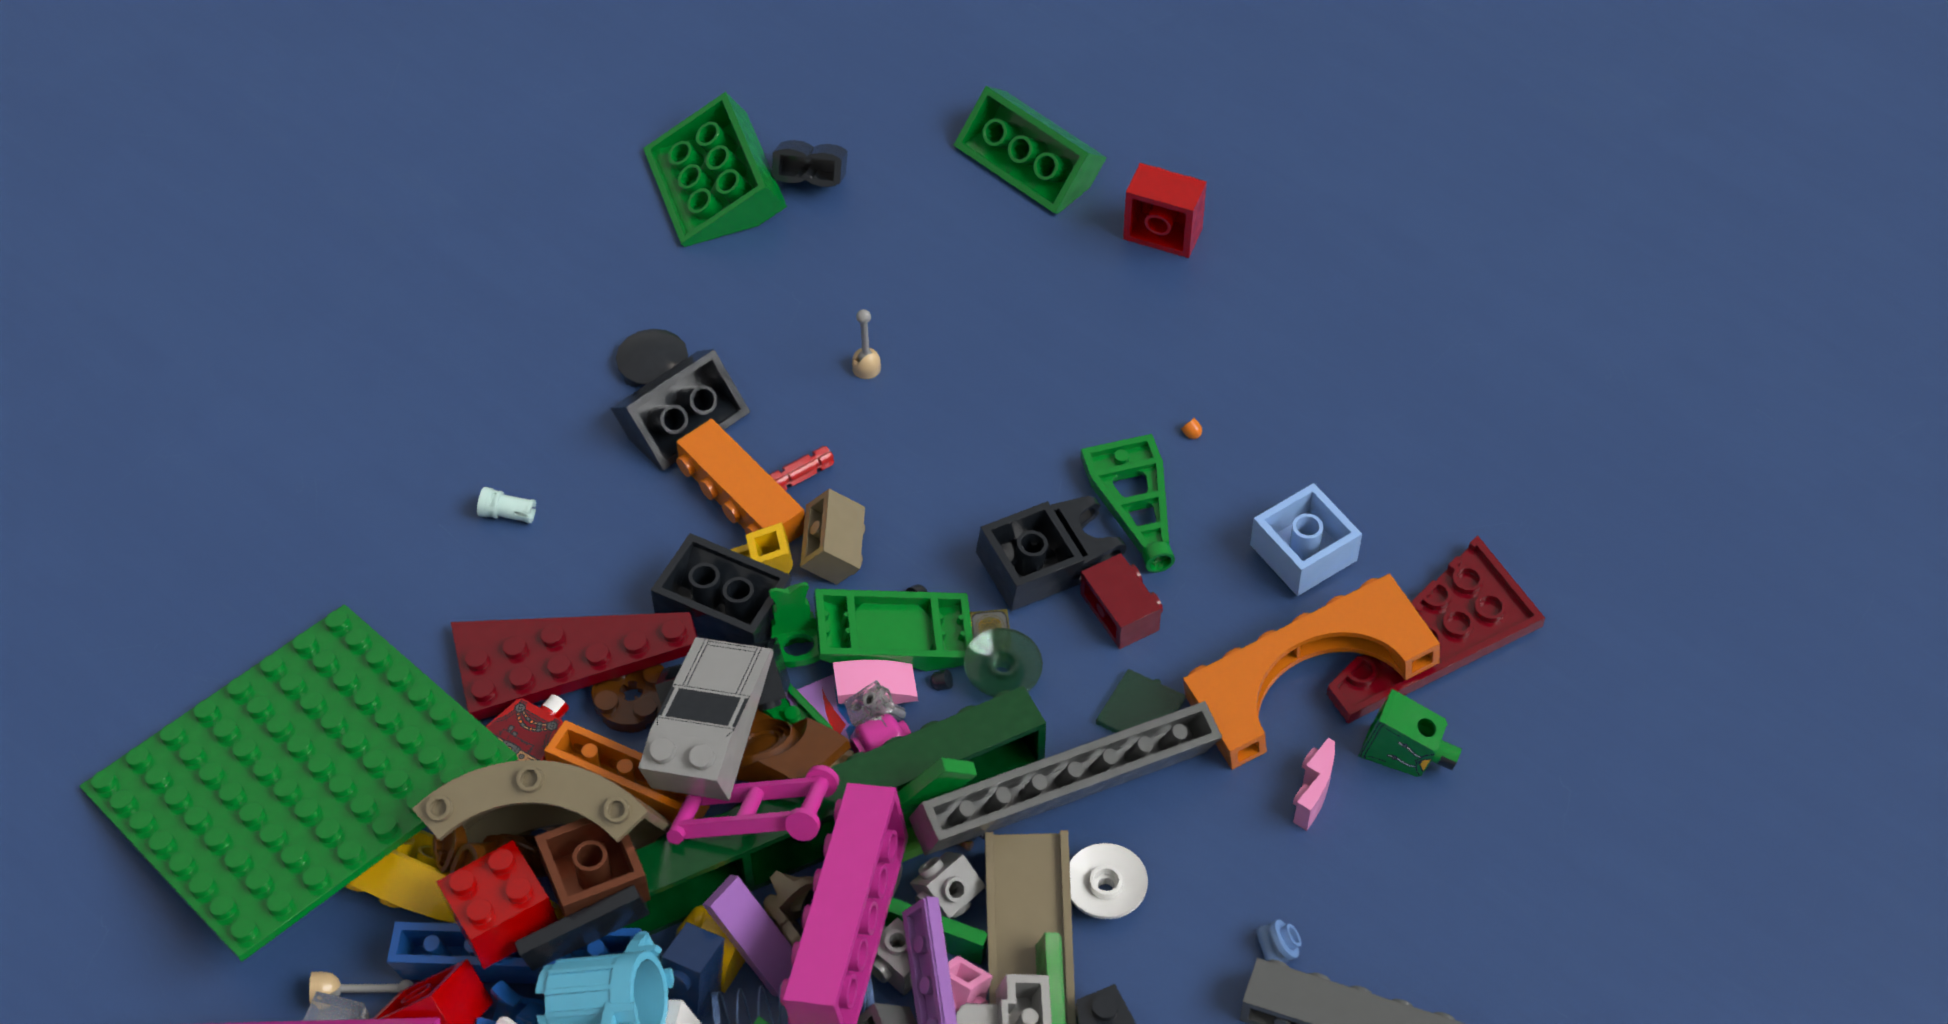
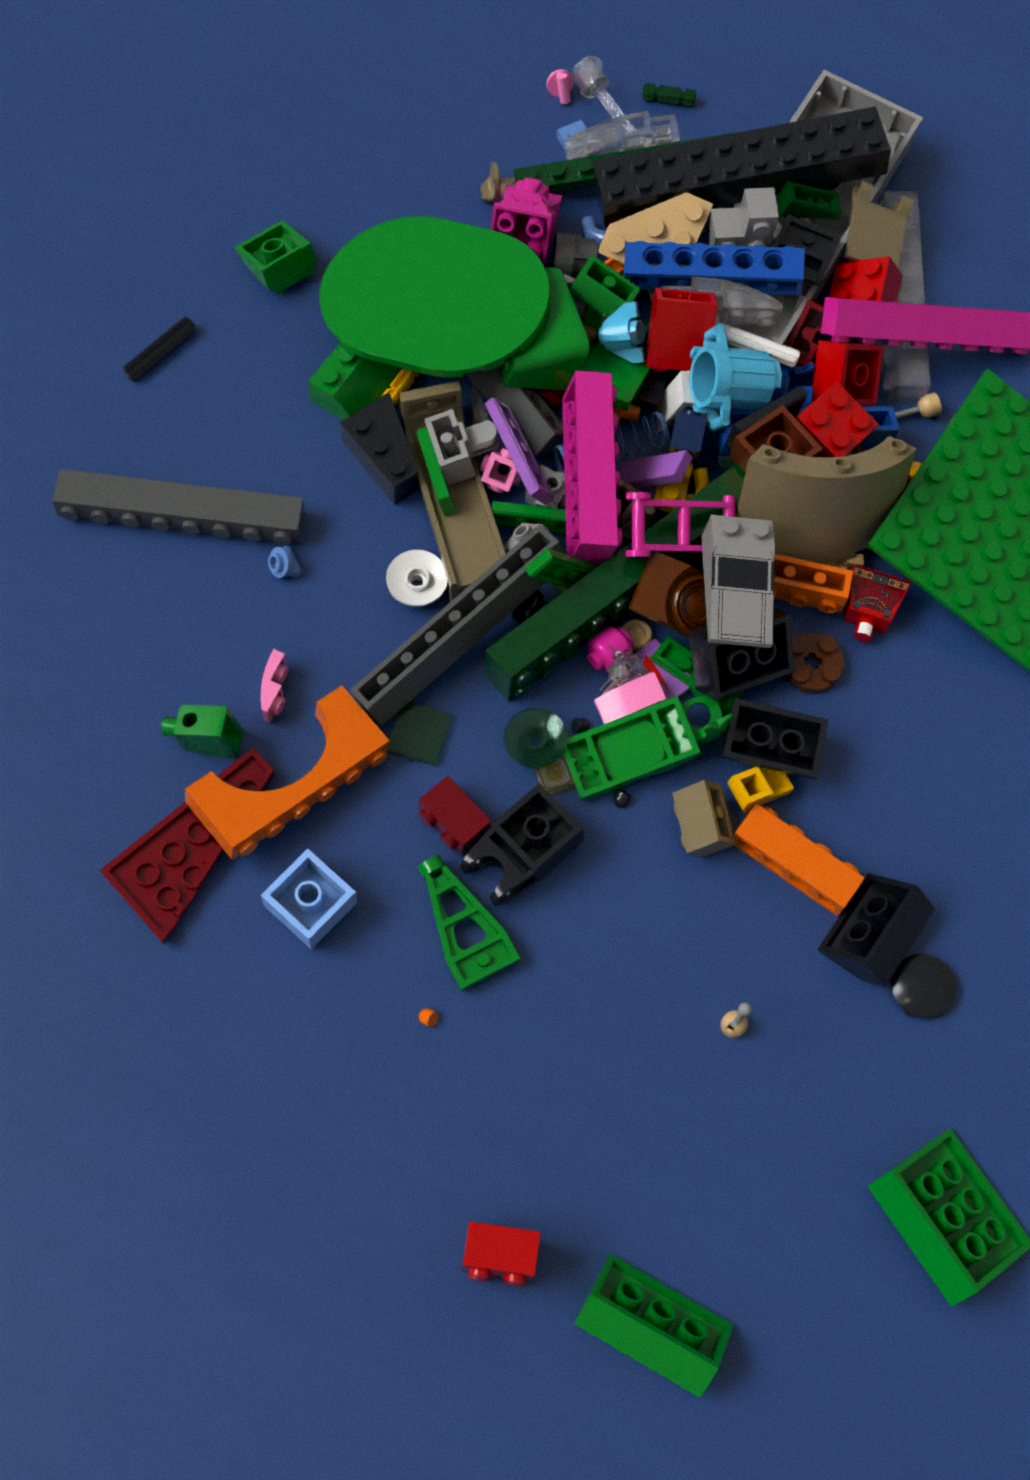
camera: 160 degrees right, 15 degrees up
(496, 505) = (988, 803): light aqua pin -> none
(560, 654) = (883, 670): dark red wing -> none
(800, 161) = (864, 1244): black brick -> none
(803, 467) = (754, 894): axle -> none

